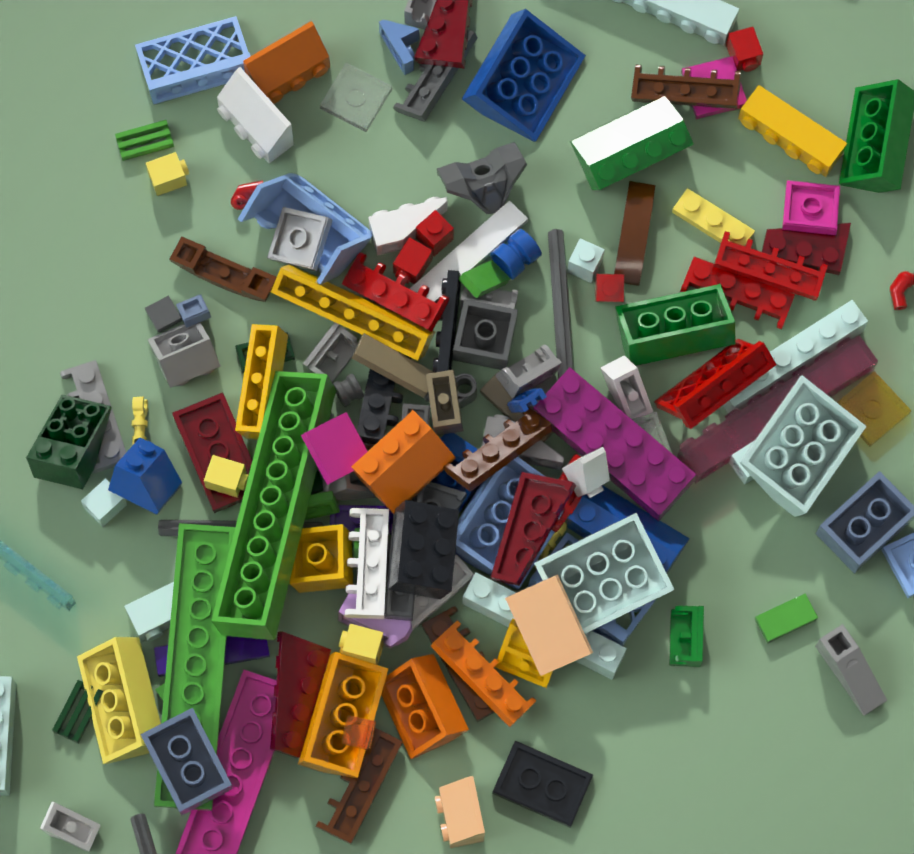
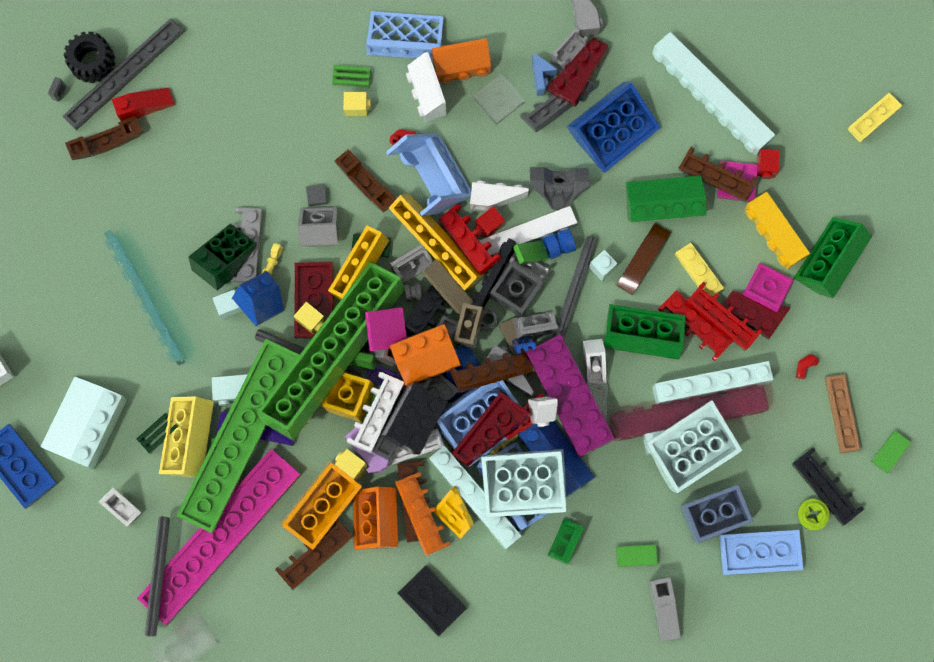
camera: 25 degrees right, 5 degrees up
(187, 761) = (205, 497): sand blue brick -> none
(193, 310) = (336, 201): sand blue tile -> none
(299, 238) = (422, 179): light grey tile -> none
(299, 679) = (302, 470): dark red wing -> none
(358, 732) = (324, 521): clear orange tile -> none
(434, 232) = (511, 209): red brick -> none
(461, 813) = (370, 599): light nougat slope -> none
(549, 625) = (475, 501): light nougat tile -> none
(609, 288) = (610, 290): red brick -> none
(716, 382) = (648, 387): red fence -> none
(875, 407) = (754, 438): clear yellow tile -> none

